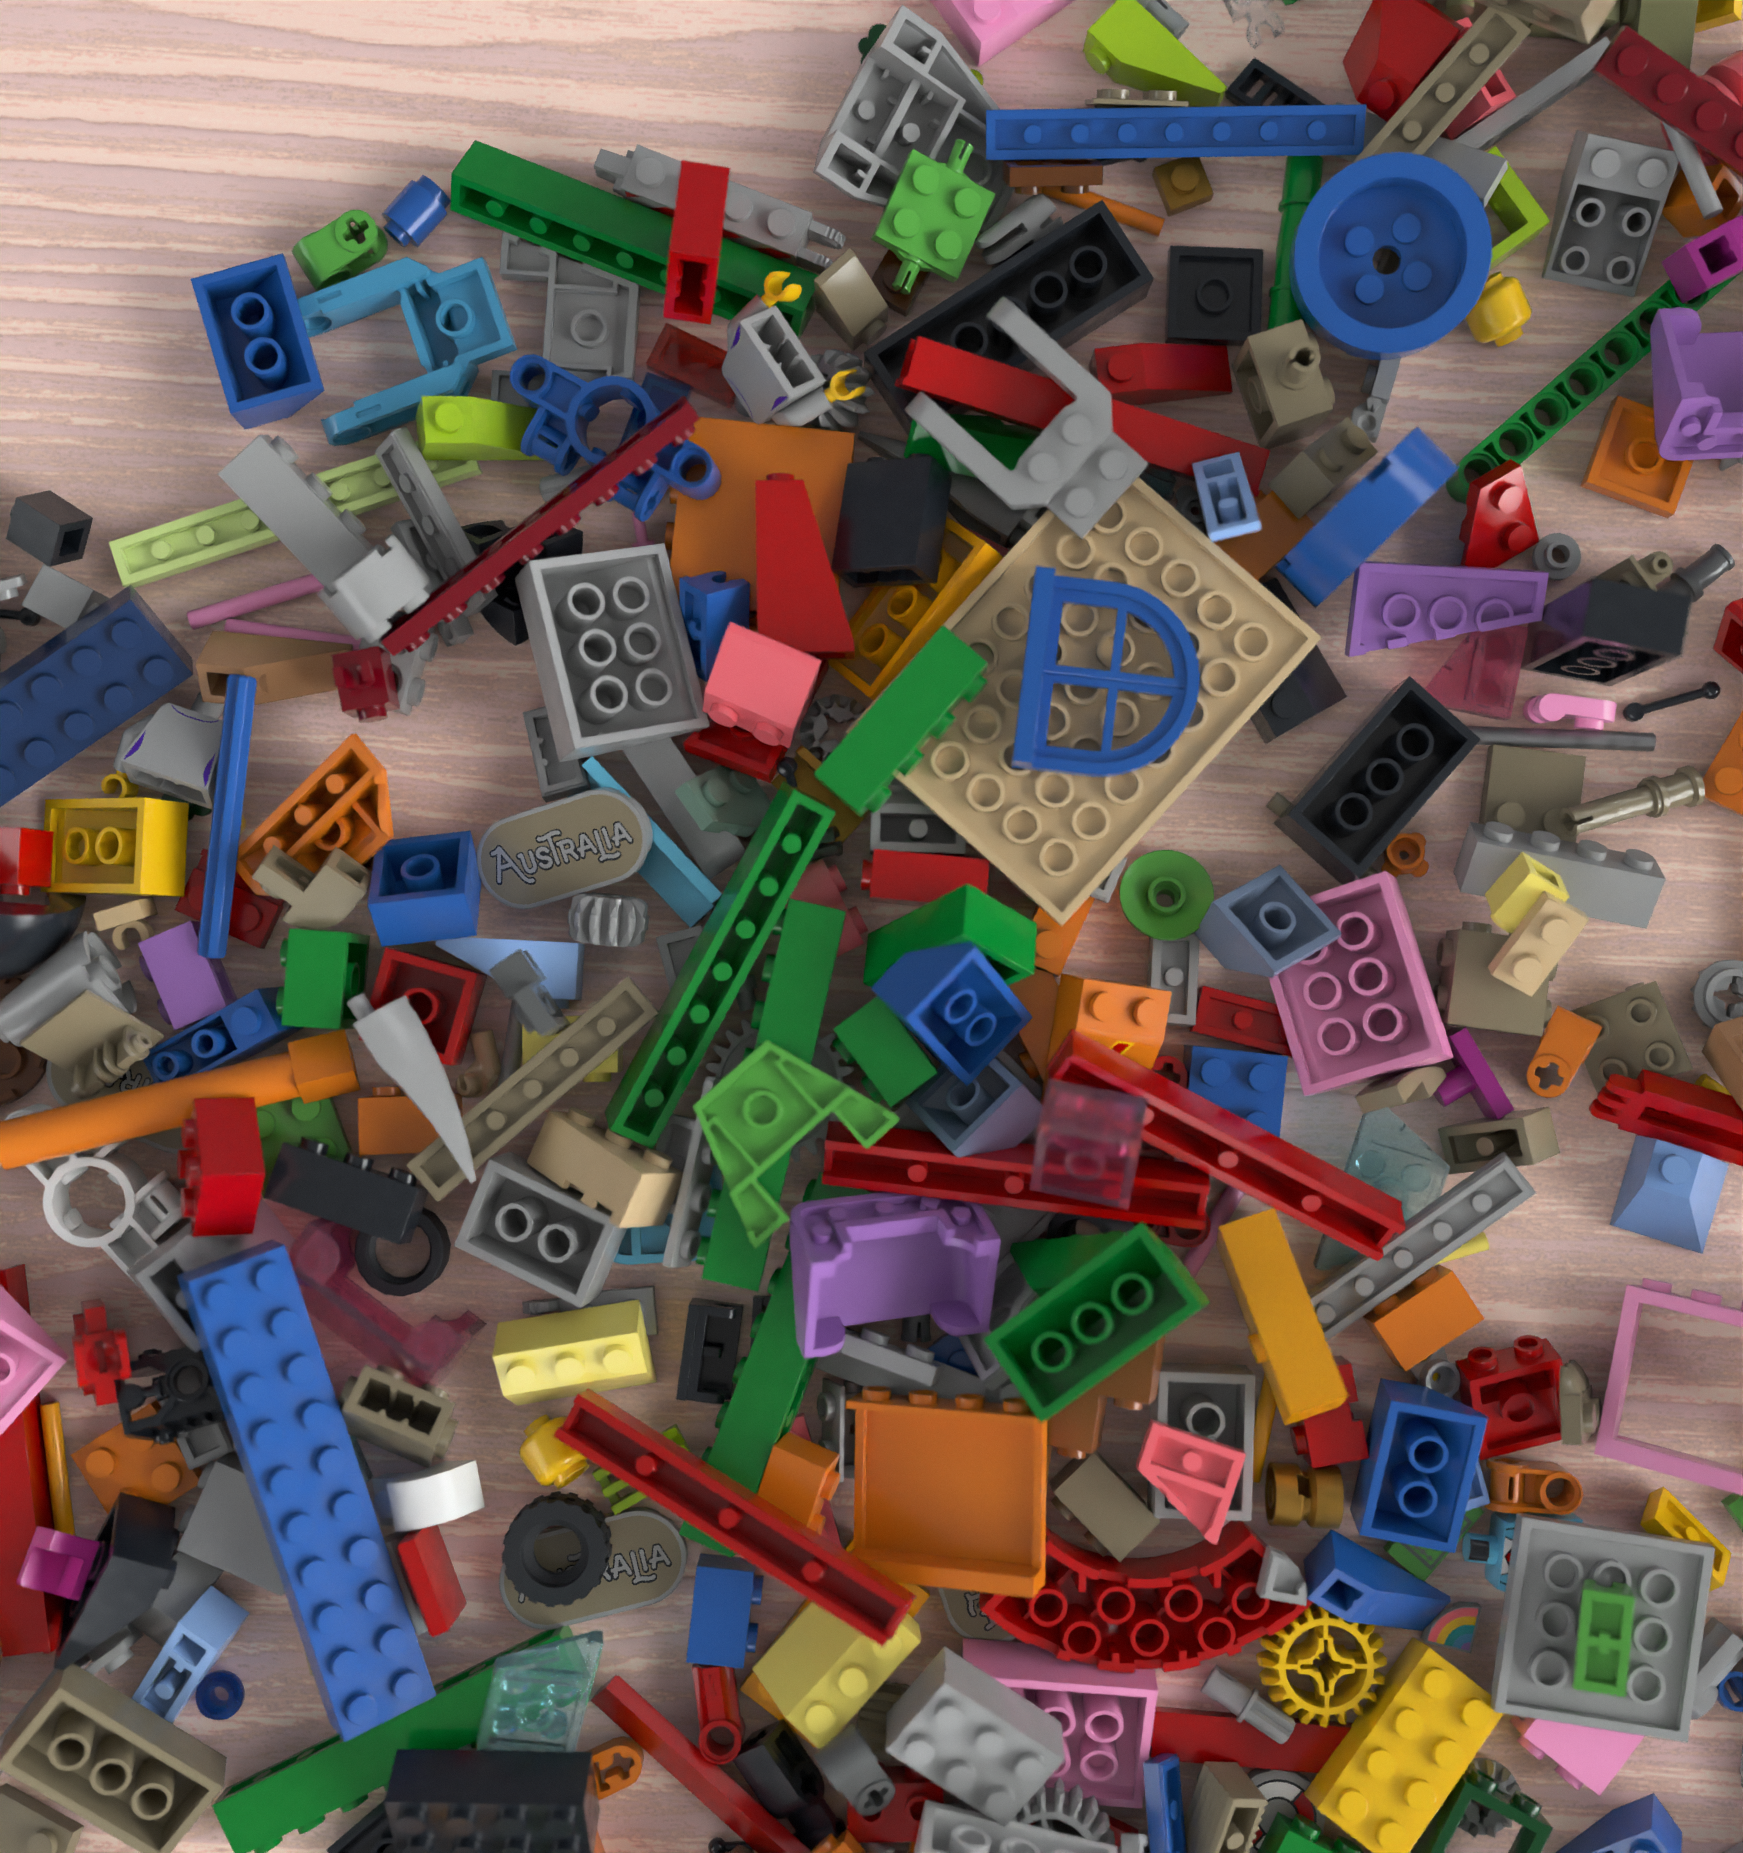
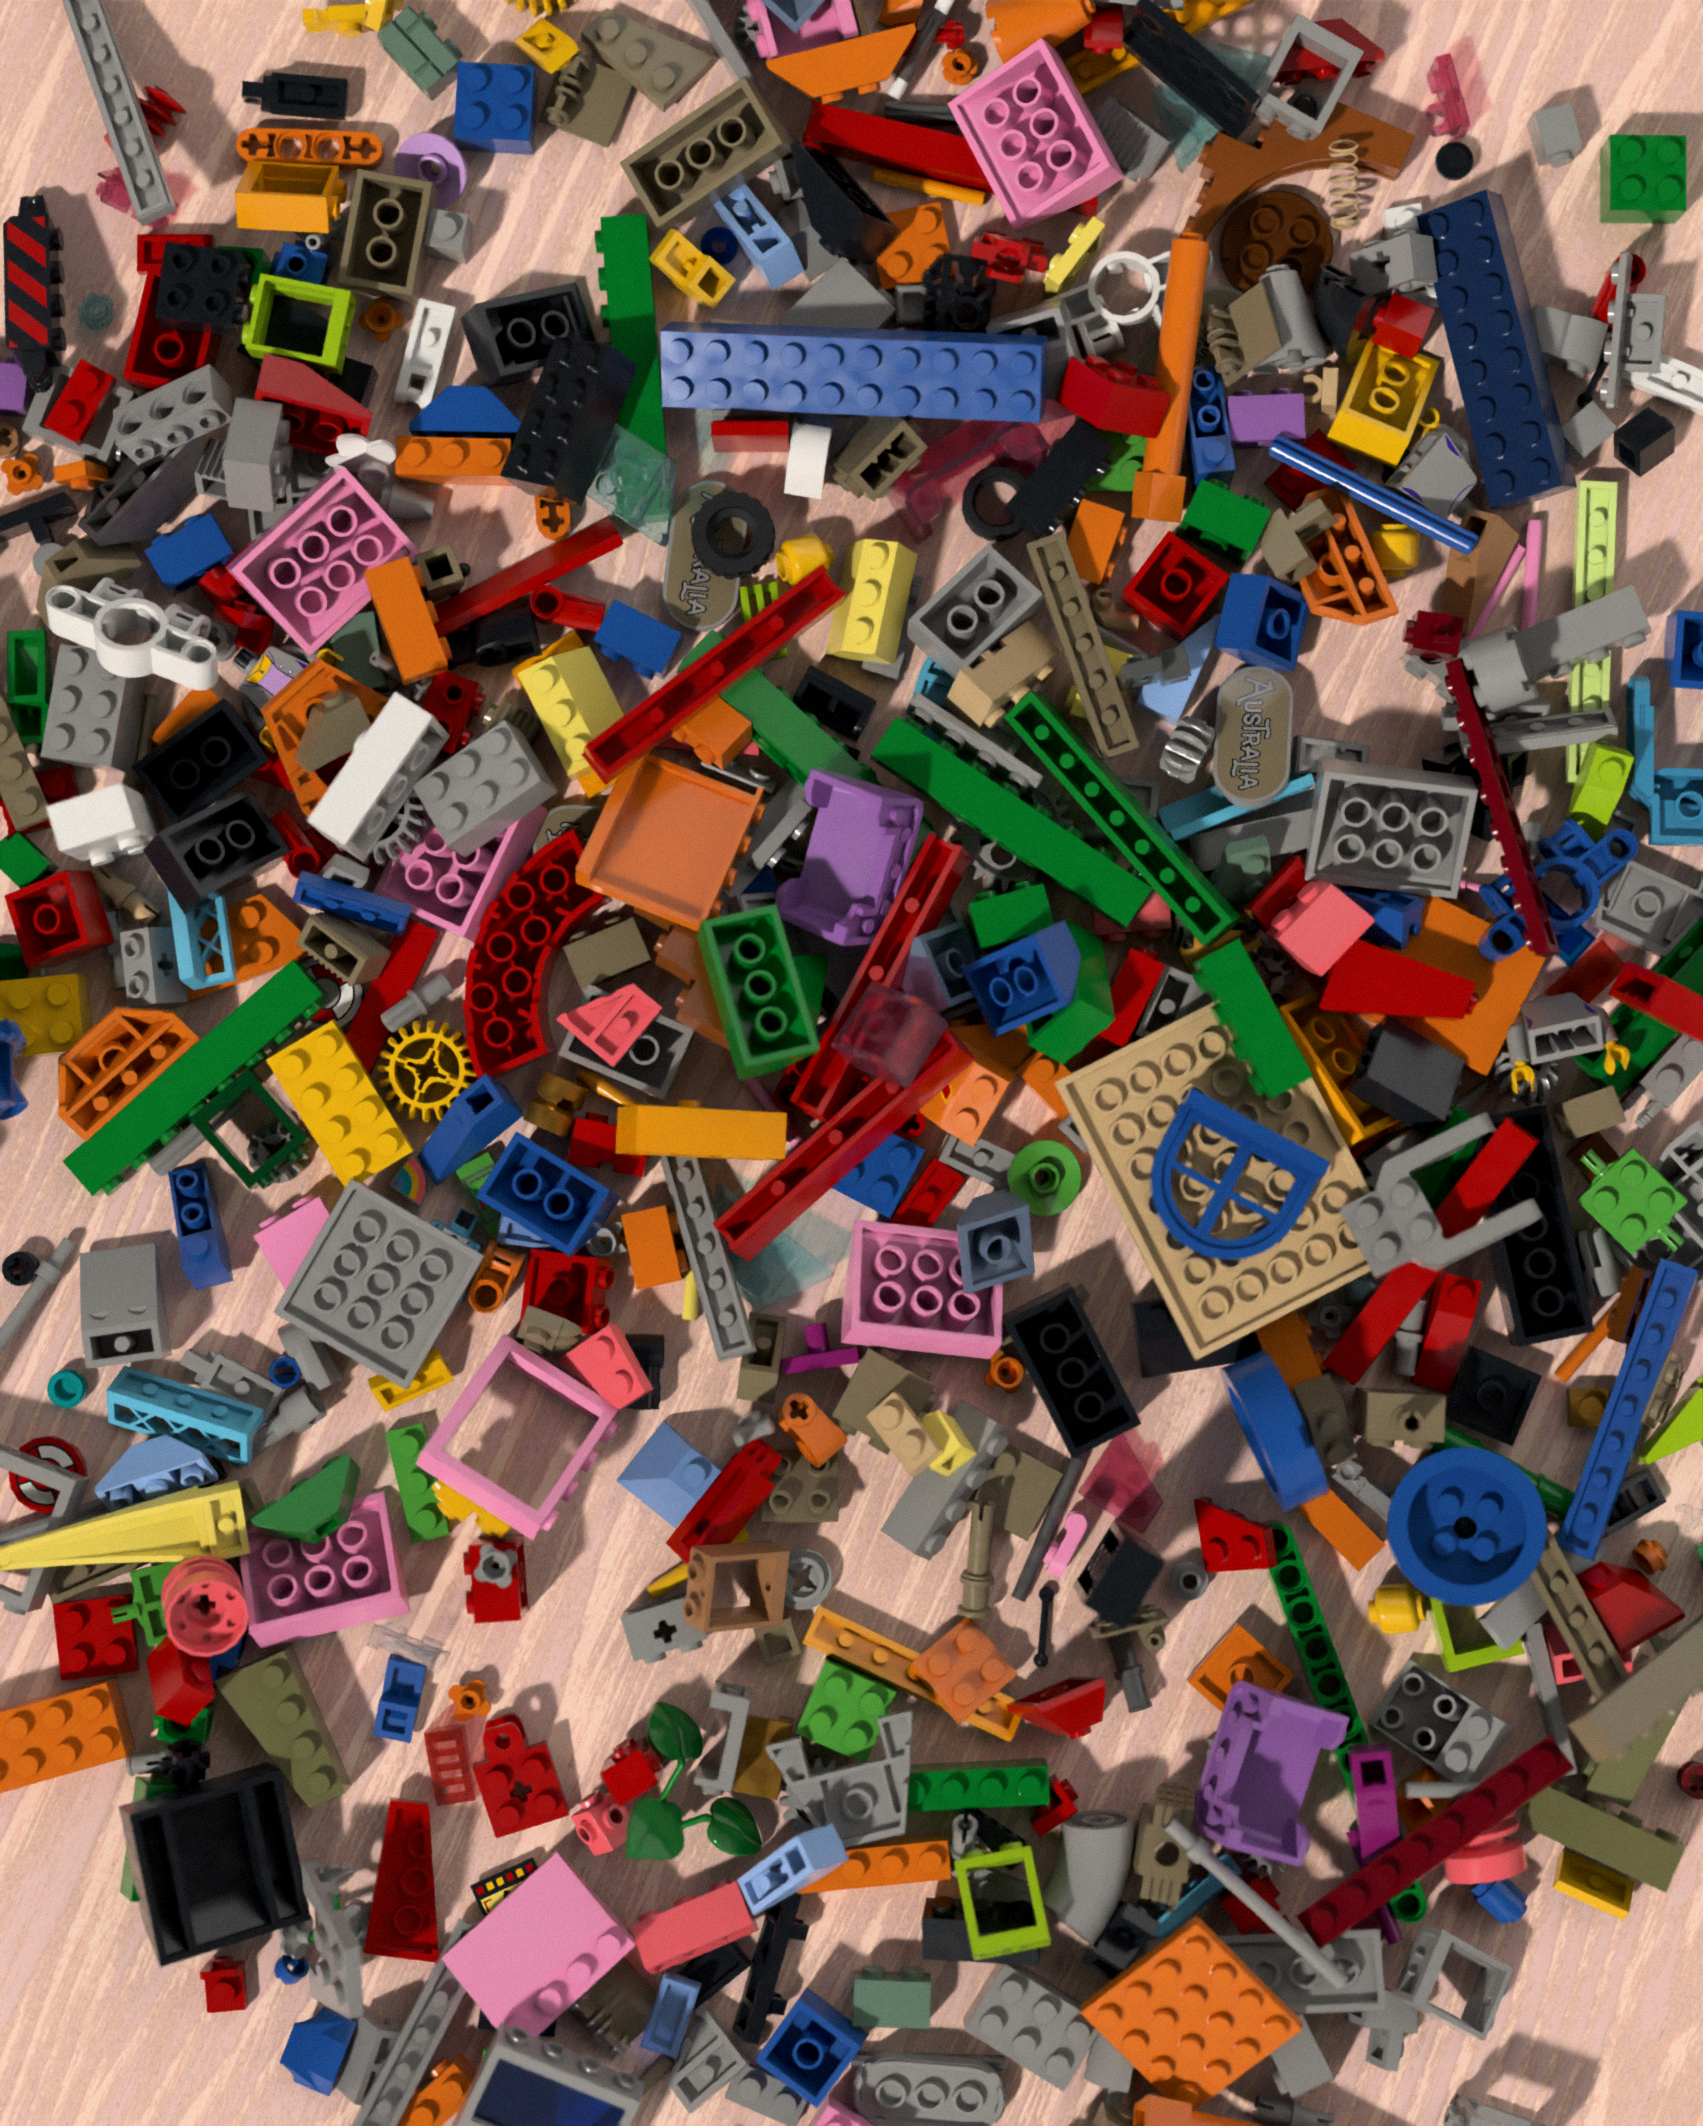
camera: 115 degrees right, 0 degrees up
(58, 1563) = (867, 167): dark pink panel -> none
(87, 1275) = (1065, 268): none -> light yellow plate
(259, 1721) = (691, 270): none -> yellow brick
(281, 766) = (1396, 548): none -> yellow head
(409, 1058) = (1139, 563): light grey piece -> none
(764, 1112) = (1002, 810): bright green wing -> none
(855, 1771) = (491, 693): dark grey piece -> none
(1195, 409) = (1408, 1341): none -> light grey pin
(1225, 497) = (1328, 1329): light blue slope -> none
(1281, 1578) = (507, 1060): light grey tile -> none
(1324, 51) = (1650, 1556): none -> orange plate
(1400, 1089) = (832, 1294): dark tan slope -> none
(1426, 602) = (1191, 1462): medium lavender wing -> none
(1428, 400) = (1342, 1529): none -> orange tile
(1554, 1276) = (650, 1355): none -> black piece
(1585, 1315) = (608, 1367): none -> coral wing
(1593, 1121) = (753, 1426): none -> light grey hinge
(1604, 1638) = (379, 1275): bright green hinge -> none

